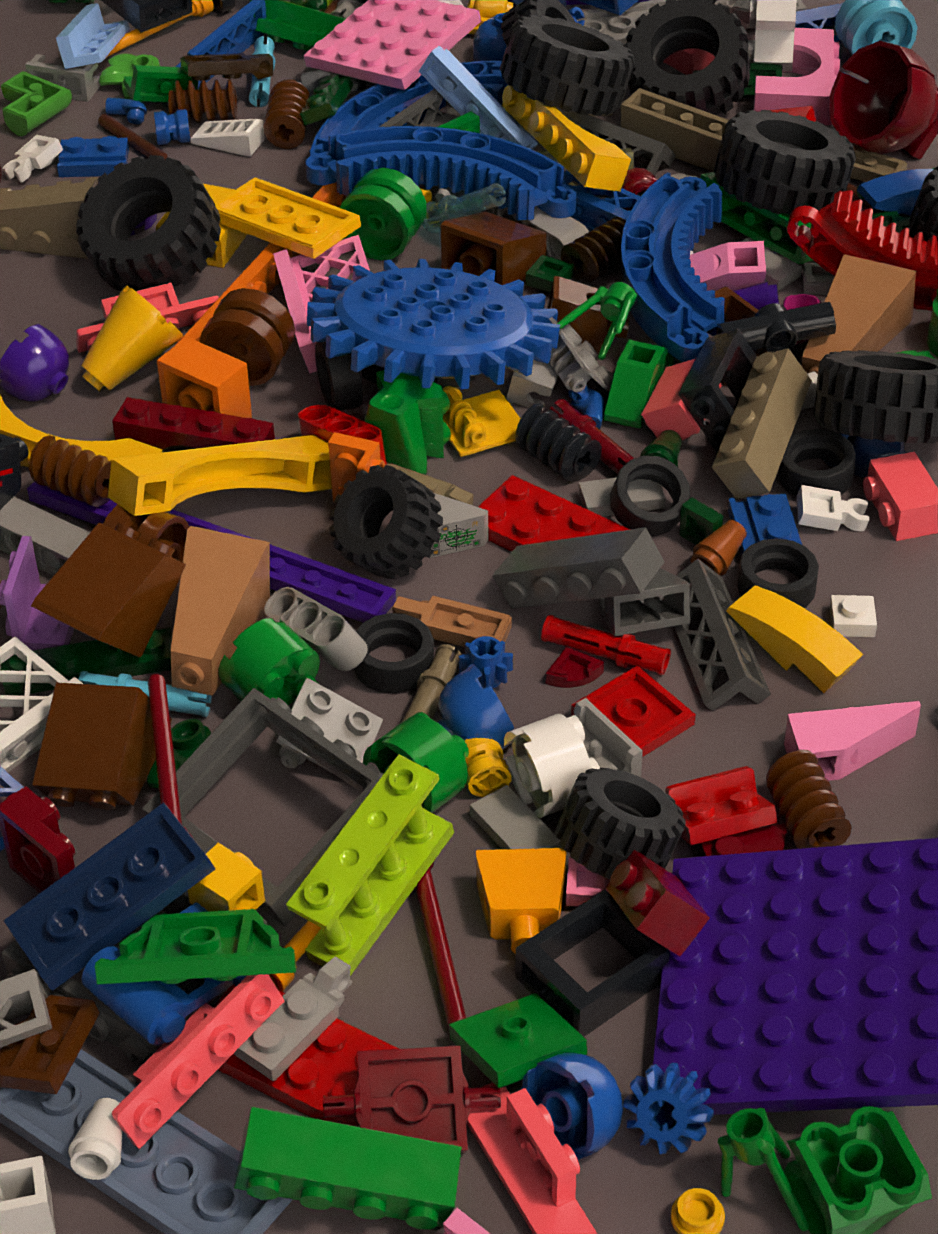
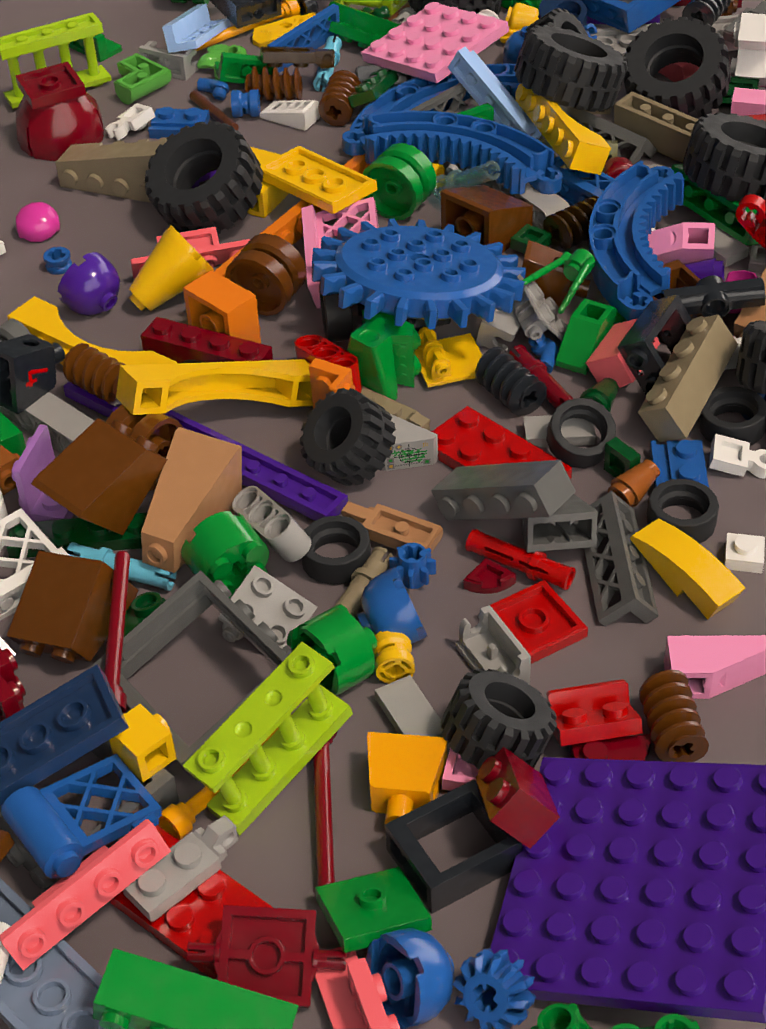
camera: 10 degrees right, 0 degrees up
(186, 34) = (269, 32): none -> yellow piece
(198, 946) = (98, 796): green wing -> none
(548, 761) = (445, 657): white brick -> none

